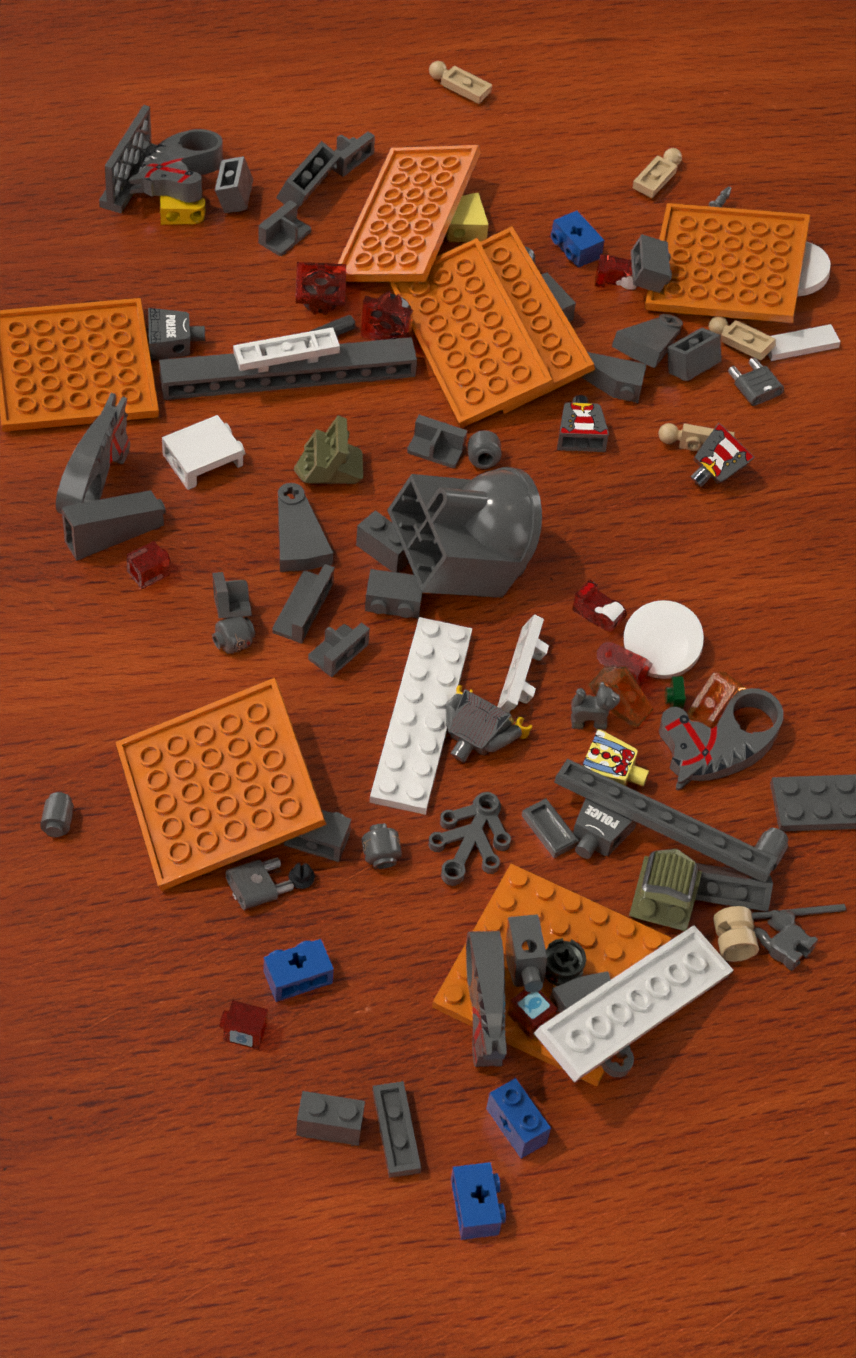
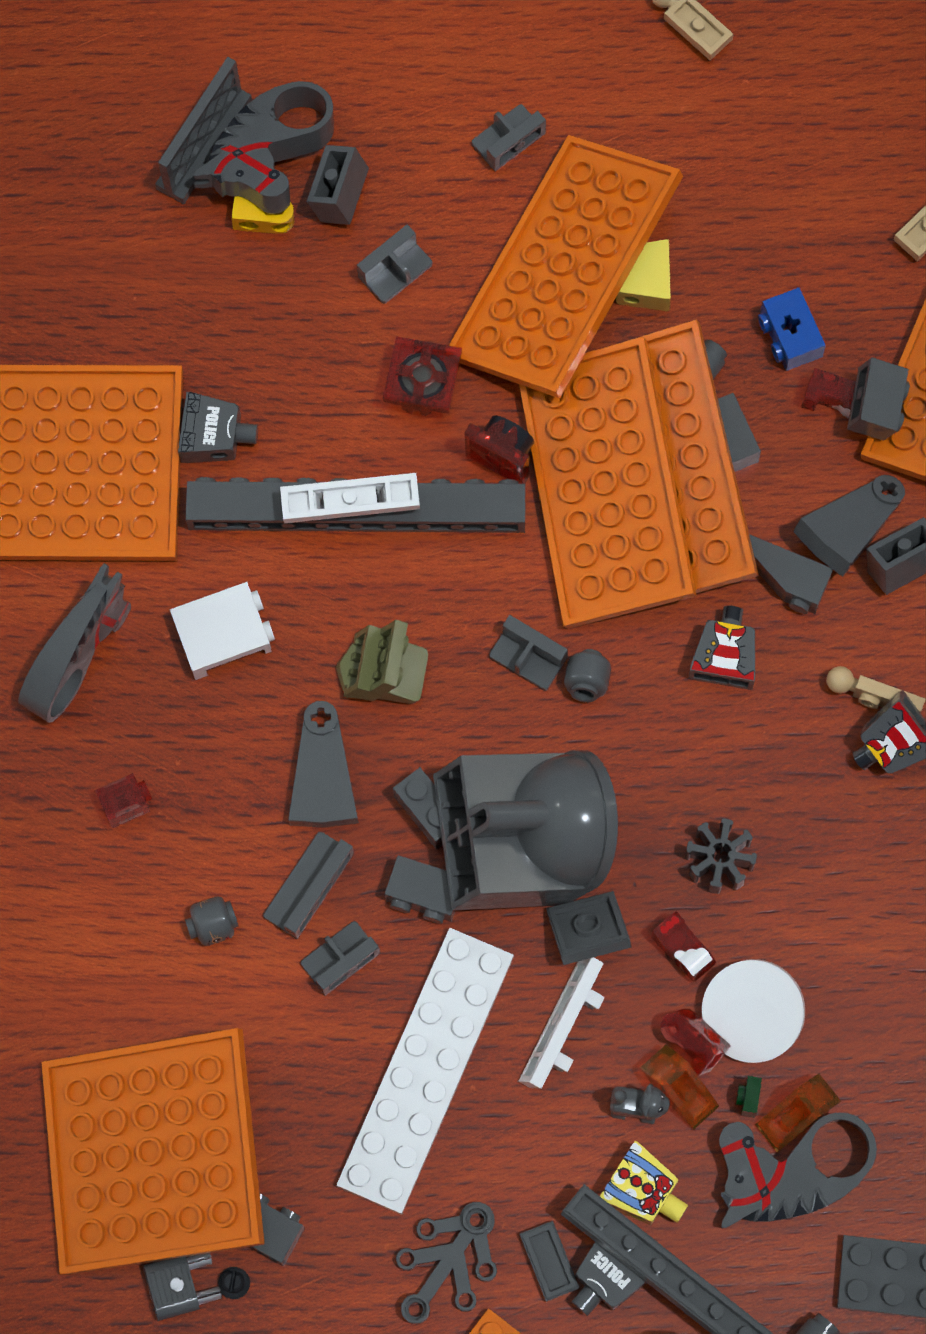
camera: 20 degrees right, 20 degrees up
(110, 521) = (87, 730): dark grey slope -> none
(230, 597) = (214, 874): dark grey panel -> none
(308, 175) = (441, 181): dark grey brick -> none
(340, 325) = (428, 443): dark grey axle -> none
(381, 846) = (335, 1262): dark grey head -> none
(480, 725) = (488, 1106): dark grey torso -> none
(525, 601) = (588, 928): none -> dark grey tile
(611, 548) = (707, 853): none -> dark grey gear

